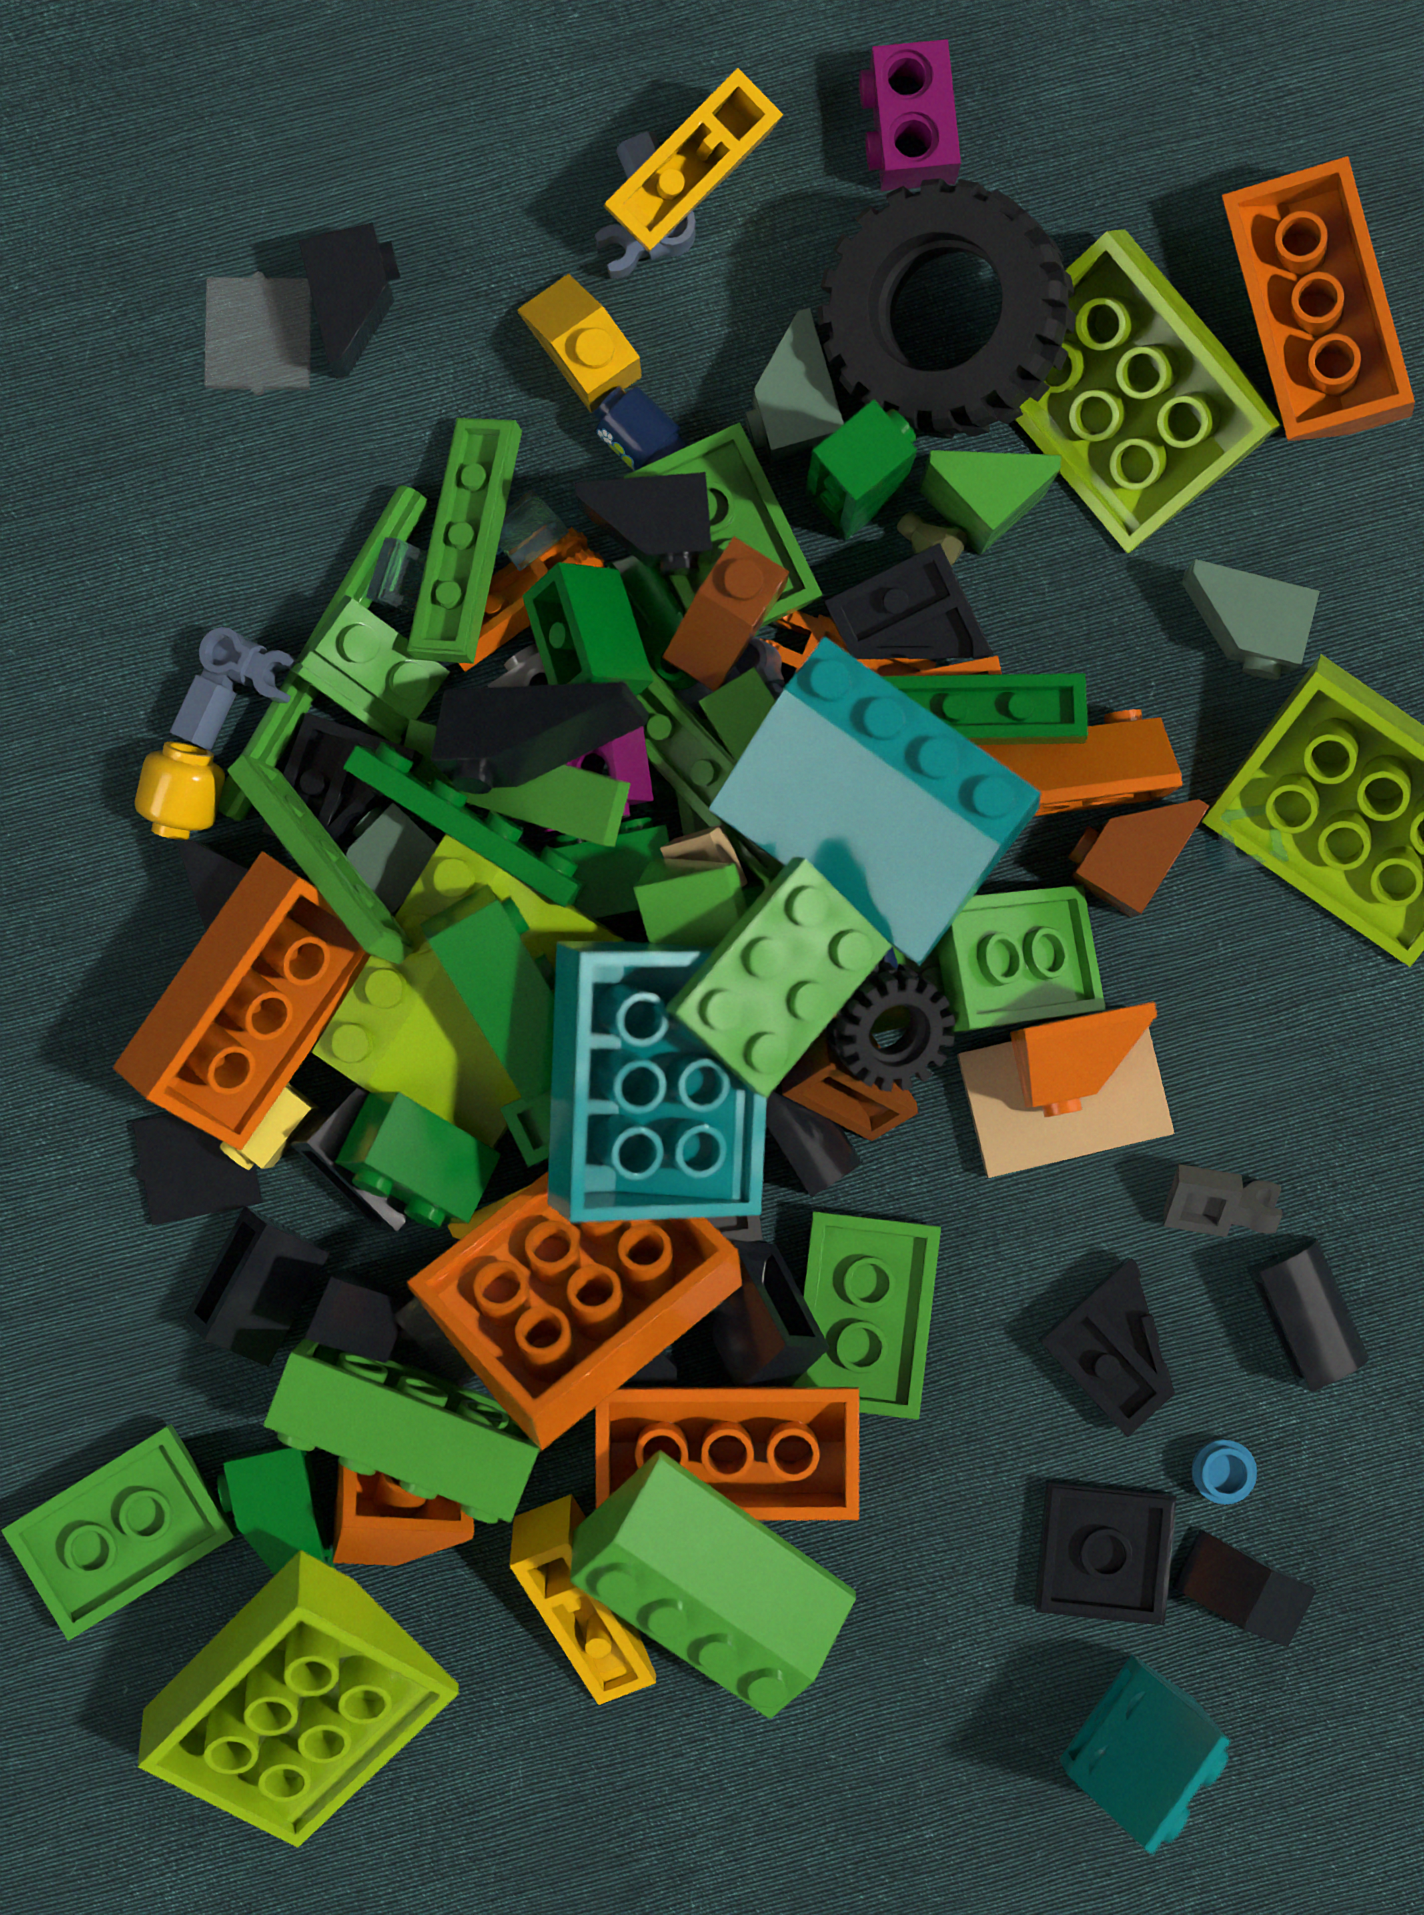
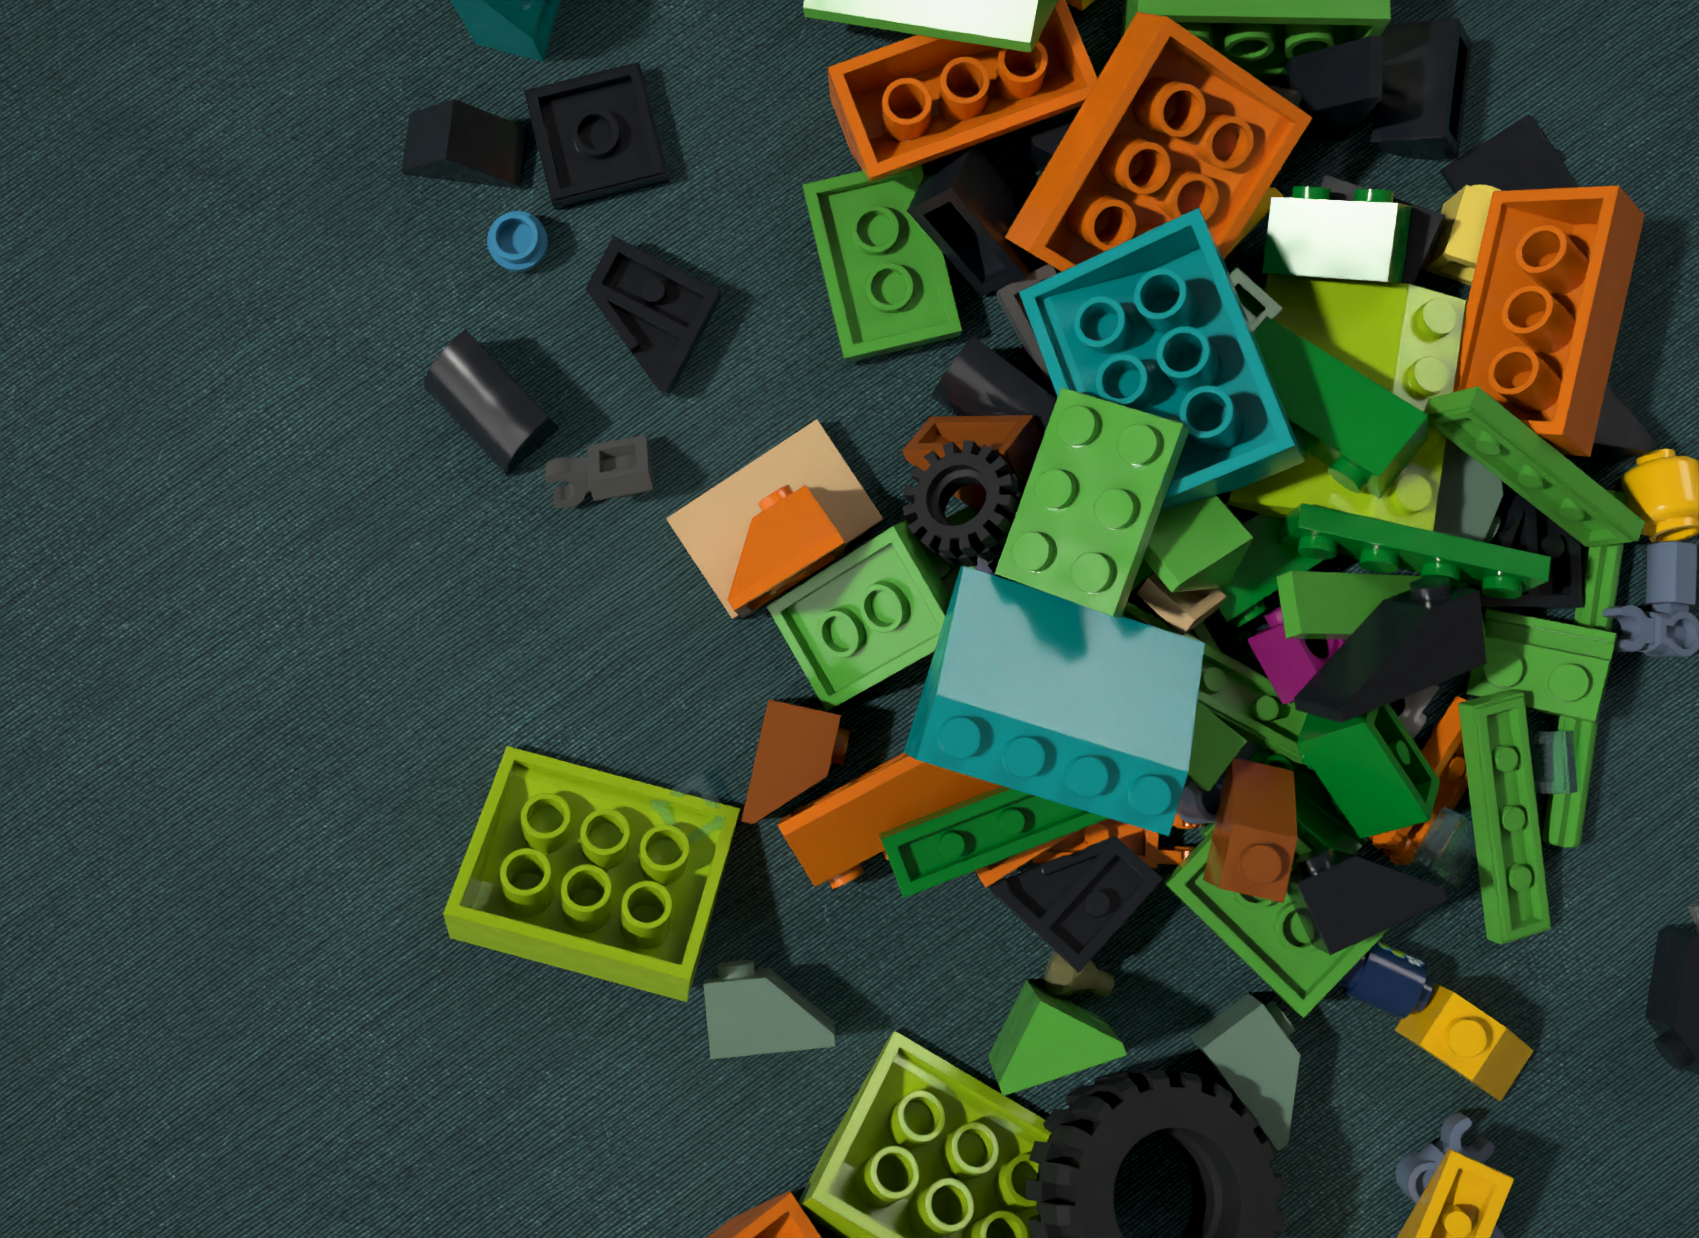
camera: 165 degrees right, 0 degrees up
(861, 468) = (1180, 1017): green brick -> none

